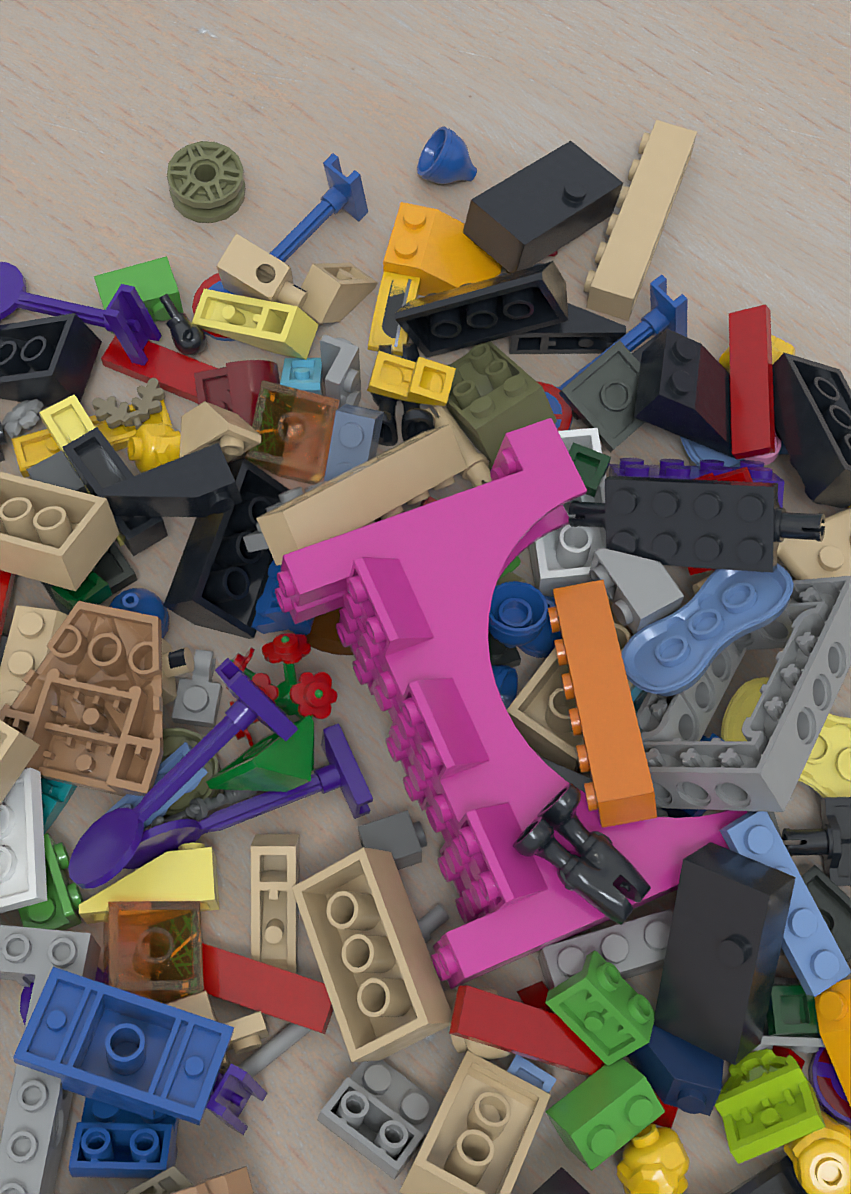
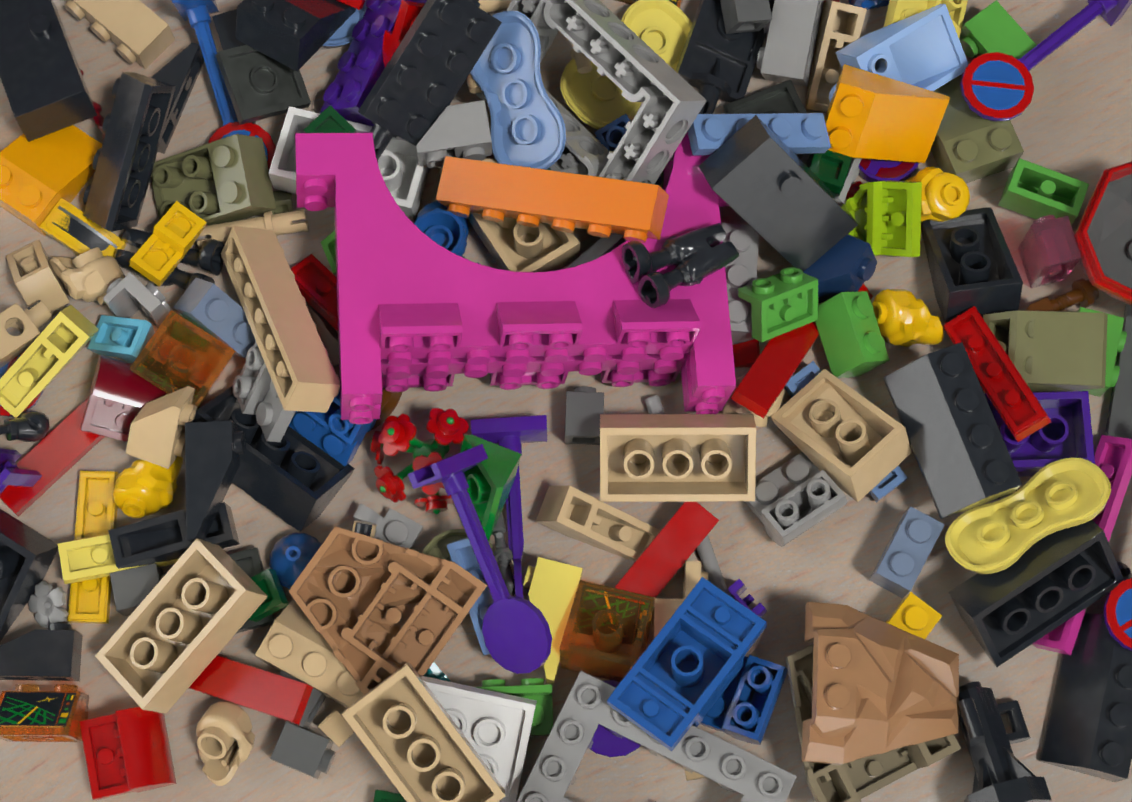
camera: 70 degrees left, 10 degrees up
(117, 416) = (88, 514): dark tan animal -> none
(354, 323) = (87, 274): none -> tan head

